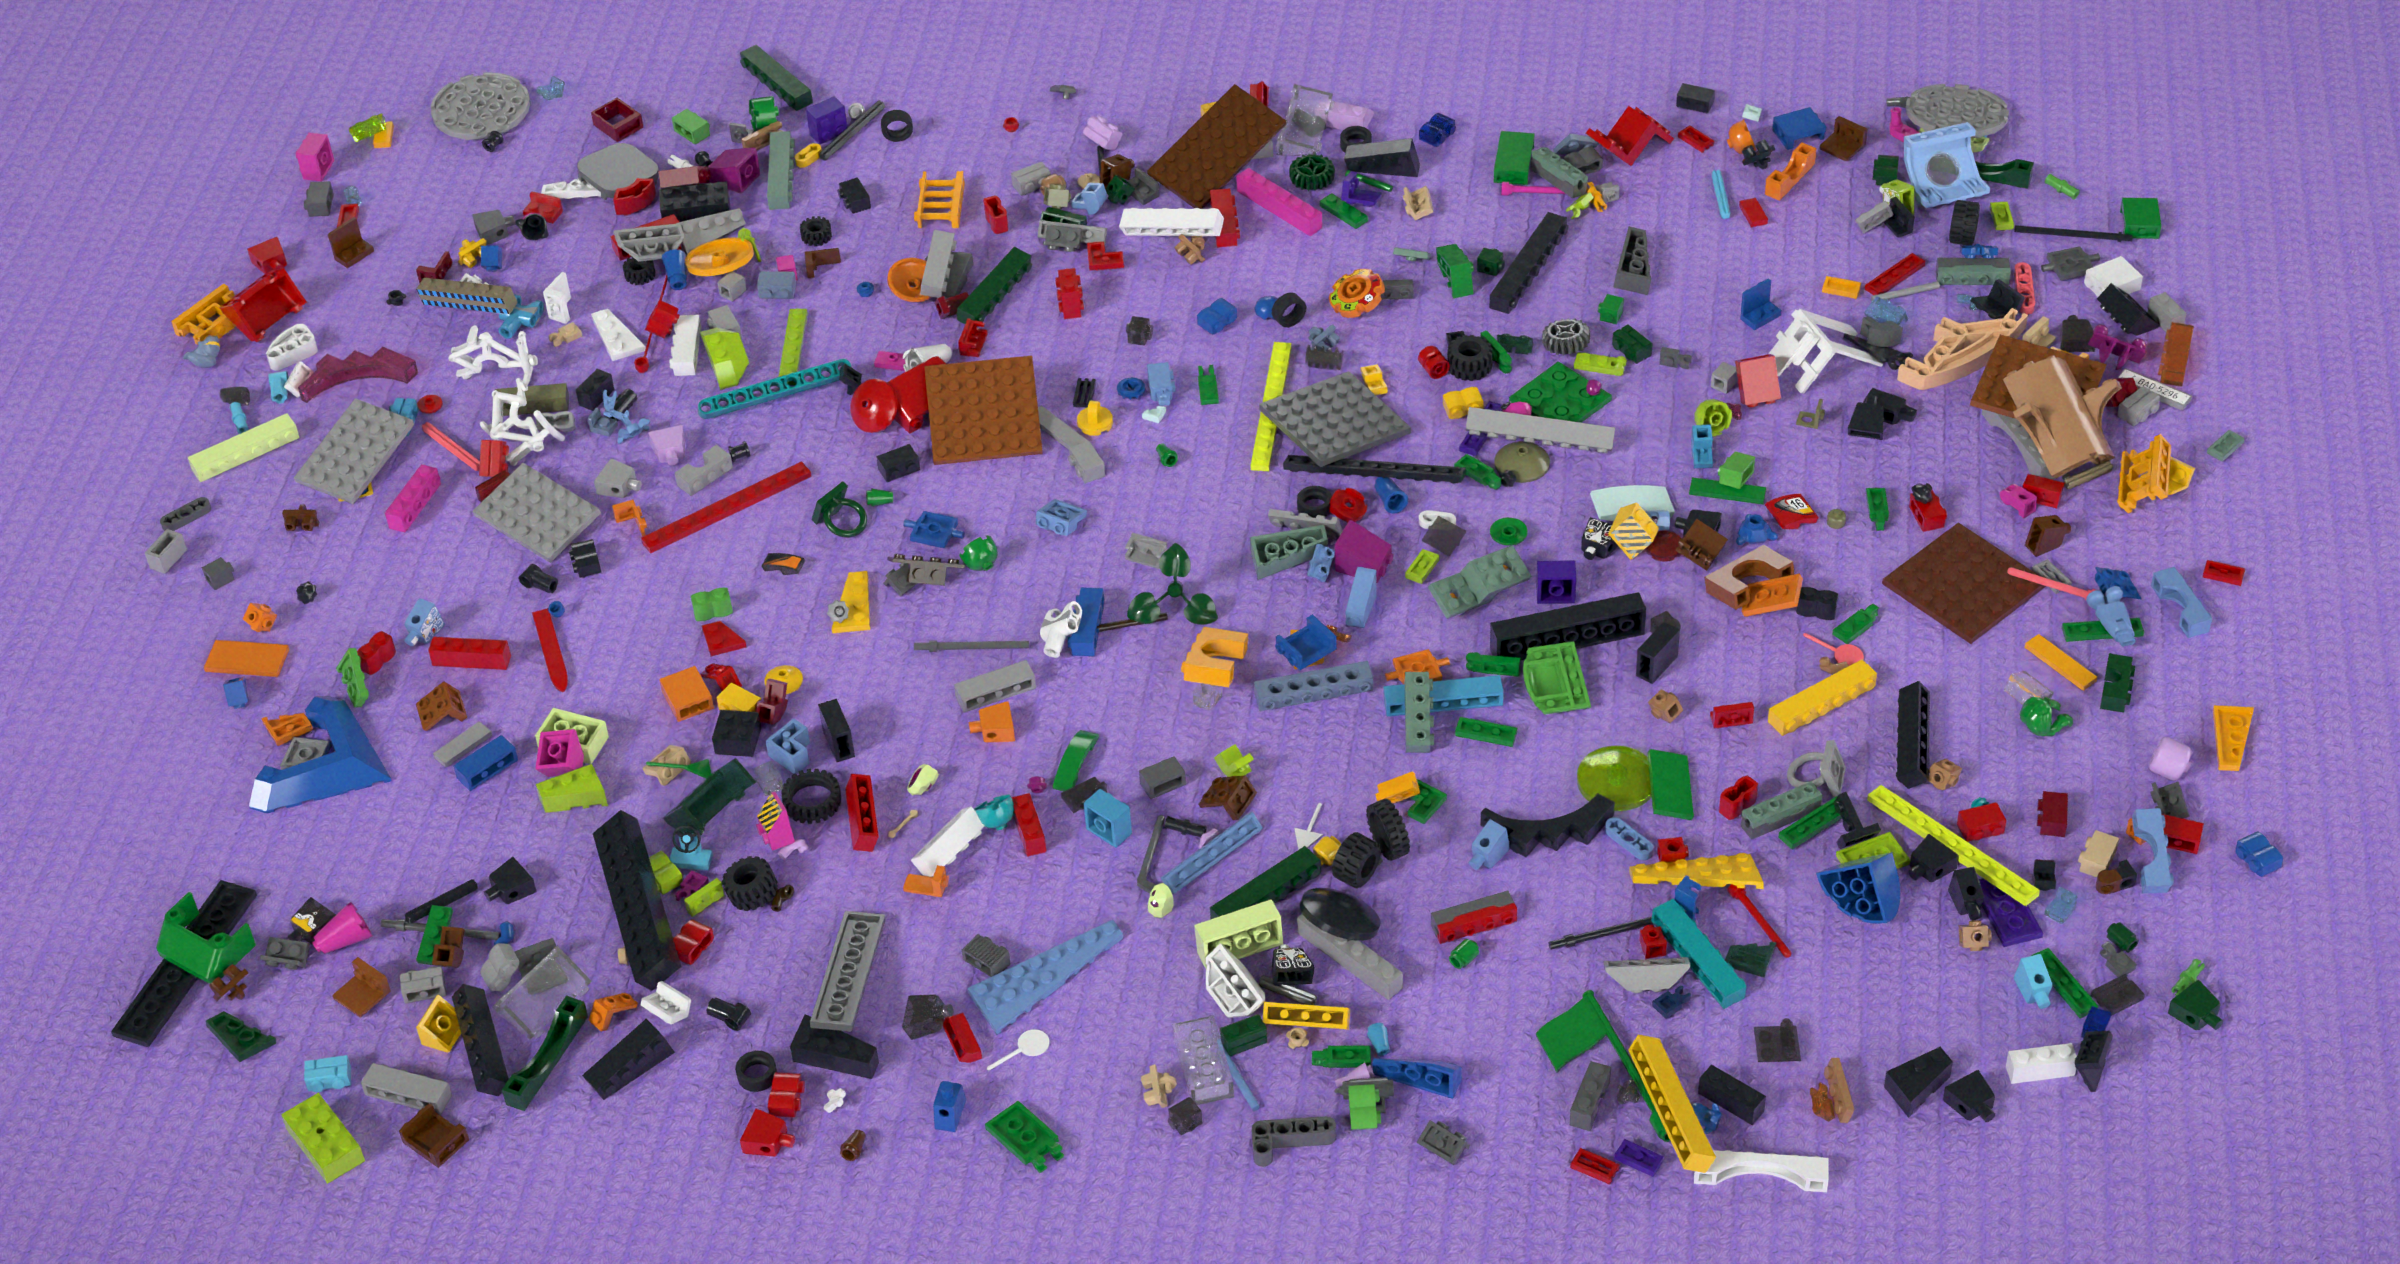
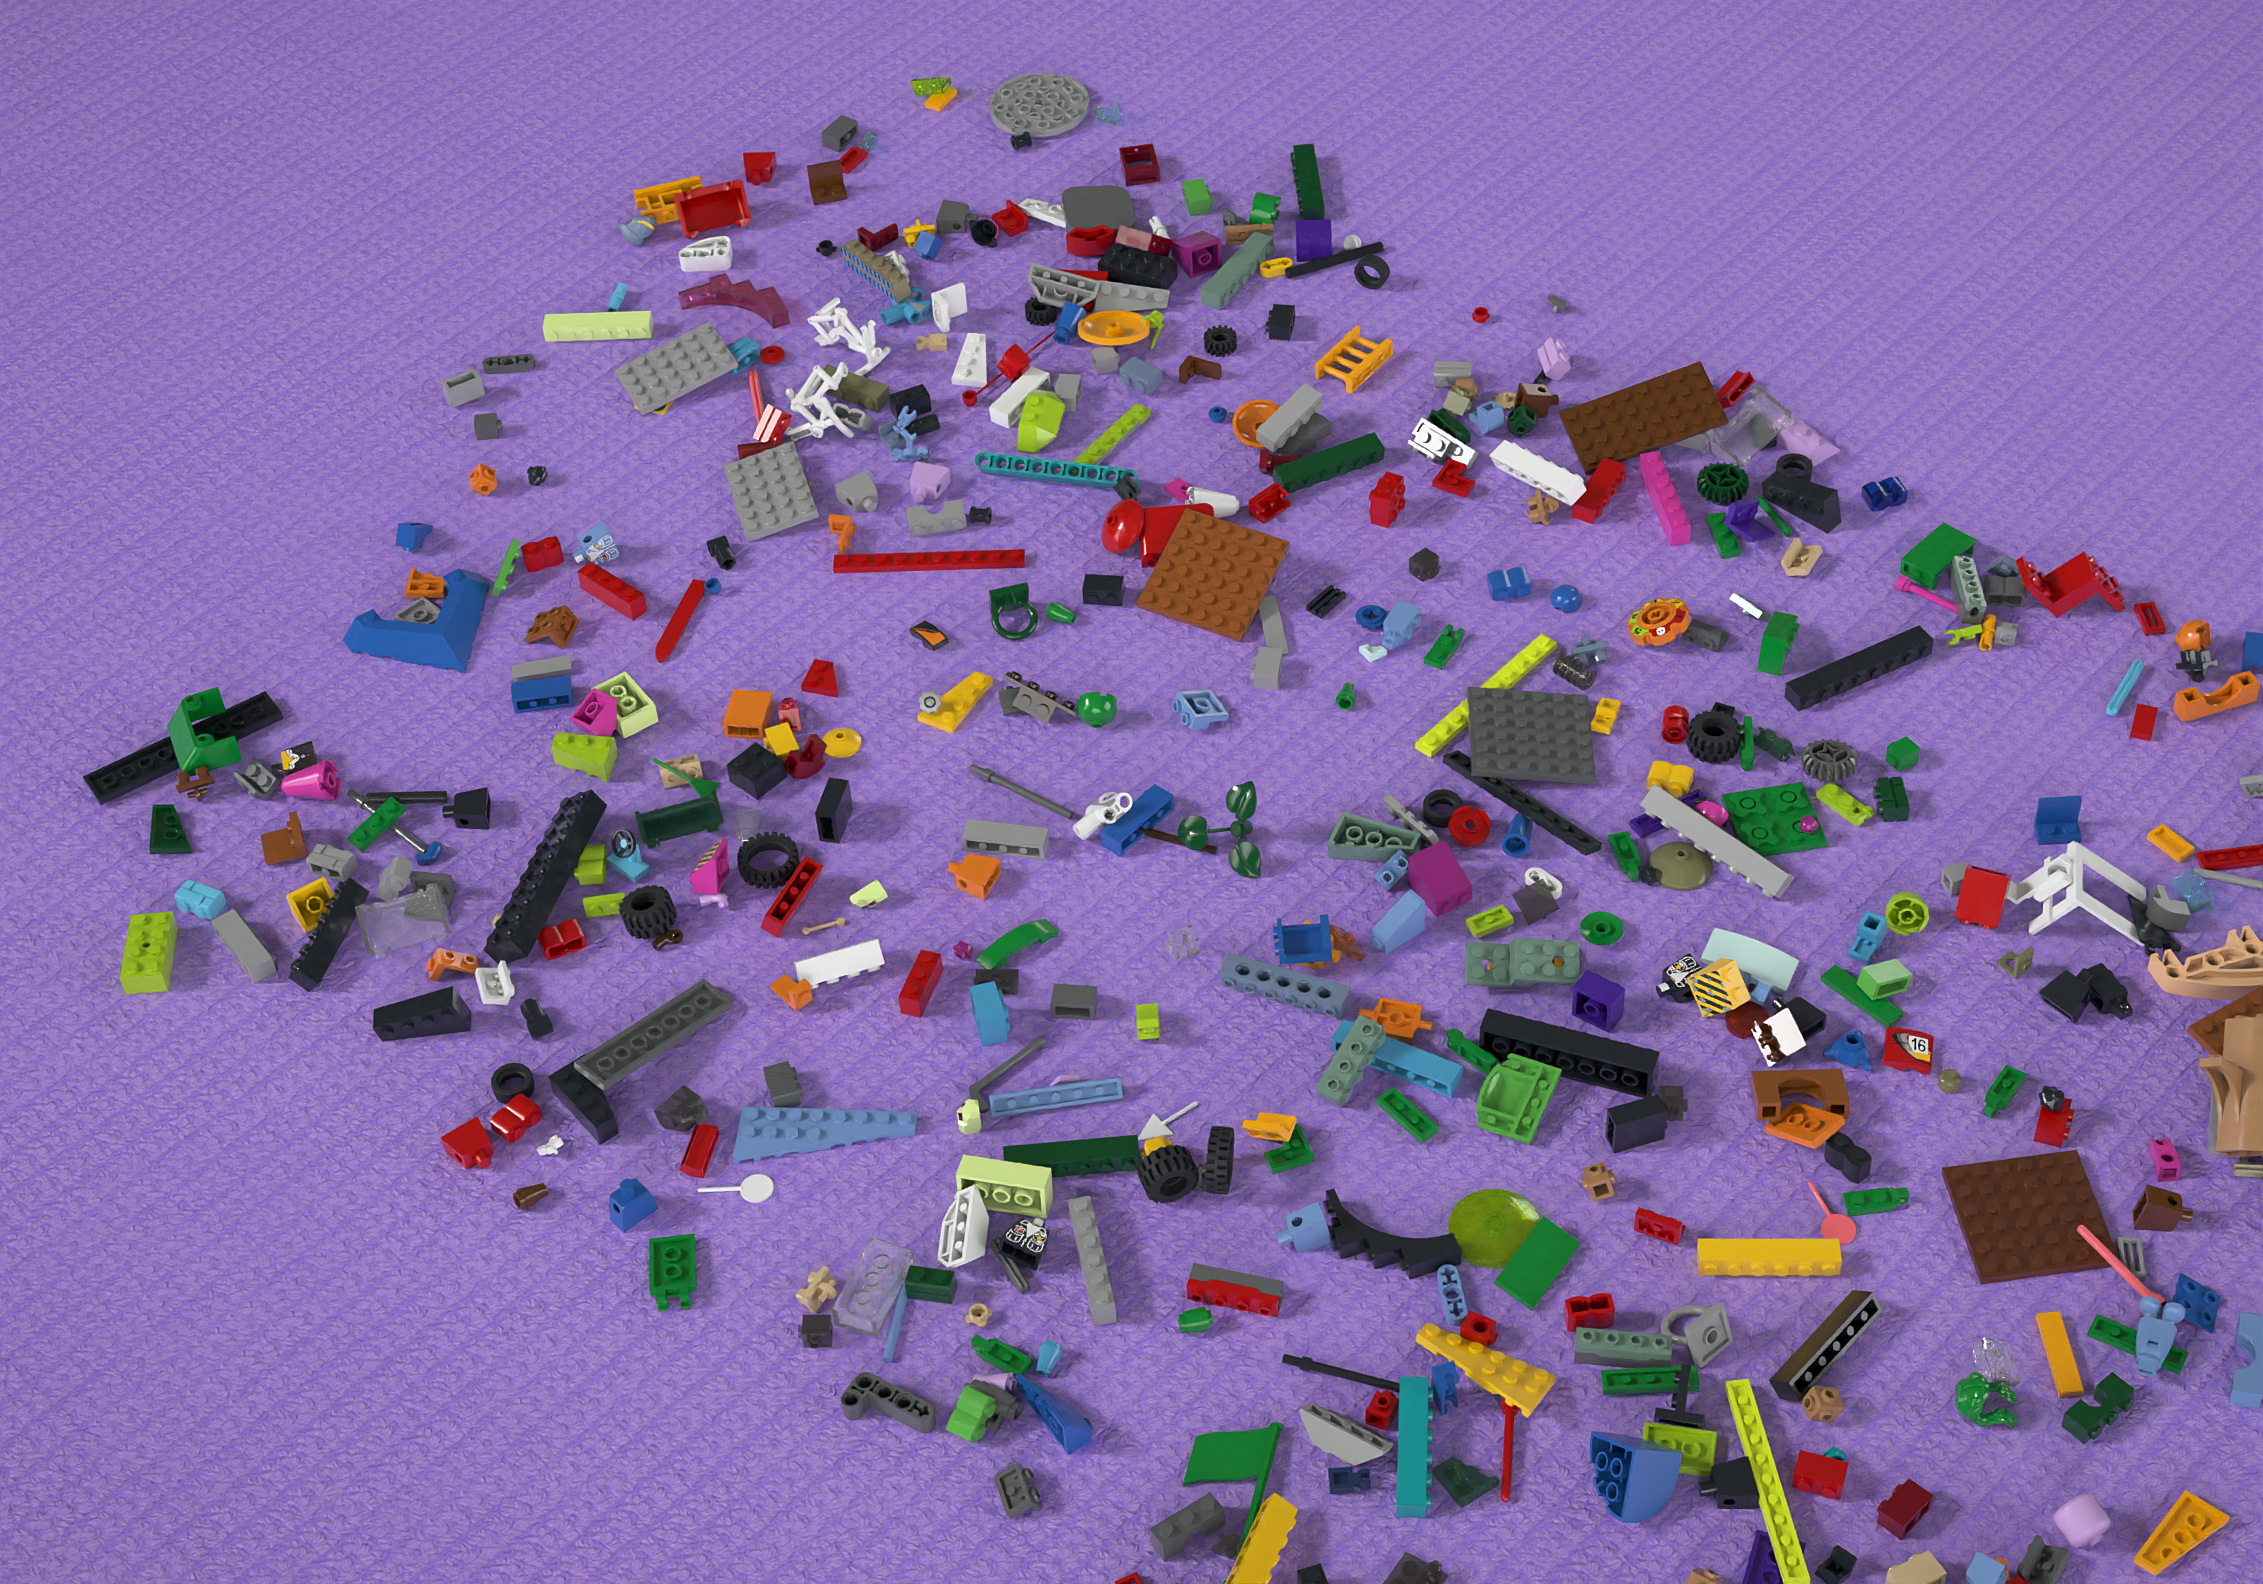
camera: 35 degrees right, 0 degrees up
(235, 394) = (631, 278): clear smoke rock -> none
(246, 658) = (448, 510): orange tile -> none
(277, 381) = (671, 282): medium azure piece -> none
(297, 377) = (689, 282): white plate -> none
(300, 517) = (587, 407): reddish brown hips -> none
(315, 156) = (864, 94): dark pink brick -> none
(413, 498) = (685, 432): dark pink brick -> none
(433, 1136) = (229, 997): reddish brown panel -> none
(450, 950) = (373, 847): reddish brown brick -> none
(565, 1025) = (329, 992): dark green arch -> none
(585, 558) = (774, 551): black brick -> none
(691, 884) = (605, 887): magenta plate -> none
(702, 159) = (1180, 230): black bush -> none
(711, 604) = (837, 643): bright green brick -> none
(786, 264) = (1166, 361): dark pink panel -> none
(789, 746) = (785, 802): medium blue brick -> none
(933, 529) = (1081, 666): blue plate -> none
(995, 214) = (1388, 395): red brick -> none
(996, 812) = (899, 956): teal cylinder -> none
(1094, 419) = (1312, 631): yellow tile -> none
(1145, 187) = (1549, 428): dark grey bracket -> none
(1145, 550) = (1246, 772): light grey hinge -> none
(1185, 826) = (1054, 1059): black pin -> none
(1211, 642) = (1226, 895): light orange arch -> none
(1230, 792) = (1119, 1051): reddish brown bracket -> none
(1295, 315) = (1578, 597): black tyre -> none
(1306, 1015) = (999, 1298): yellow brick -> none
(1340, 914) = (1108, 1217): black dish -> none
(1490, 261) = (1821, 650): dark green brick -> none
(1633, 267) = (1963, 716): dark grey wedge -> none
(1672, 358) = (1921, 833): dark grey plate -> none
(1695, 98) = (2183, 576): black brick -> none
(1736, 410) = (1940, 917): clear pink piece -> none
(1752, 112) = (2232, 617): light aqua tile -> none
(1831, 668) = (1807, 1231): medium nougat arm -> none
(1966, 892) = (1734, 1539): black torso -> none
(2046, 490) = (2200, 1162): red hinge -> none

